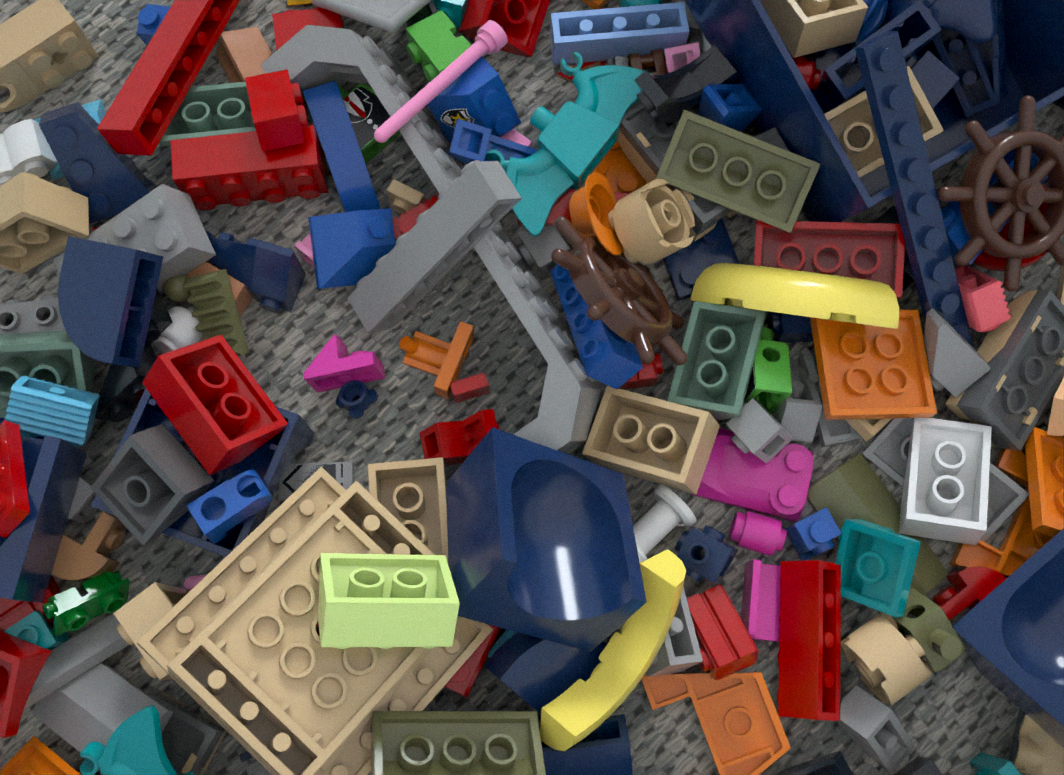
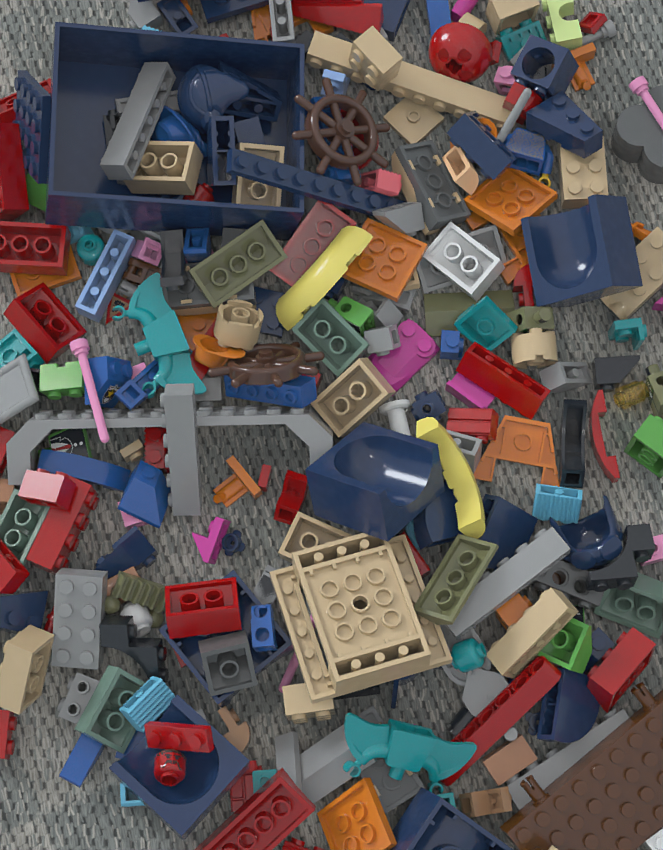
camera: 50 degrees left, 0 degrees up
(103, 595) = (264, 752): green hinge -> none
(107, 299) = (104, 637): dark blue brick -> none
(386, 601) = (363, 566): yellowish green slope -> none
(757, 532) = (433, 373): dark pink brick -> none

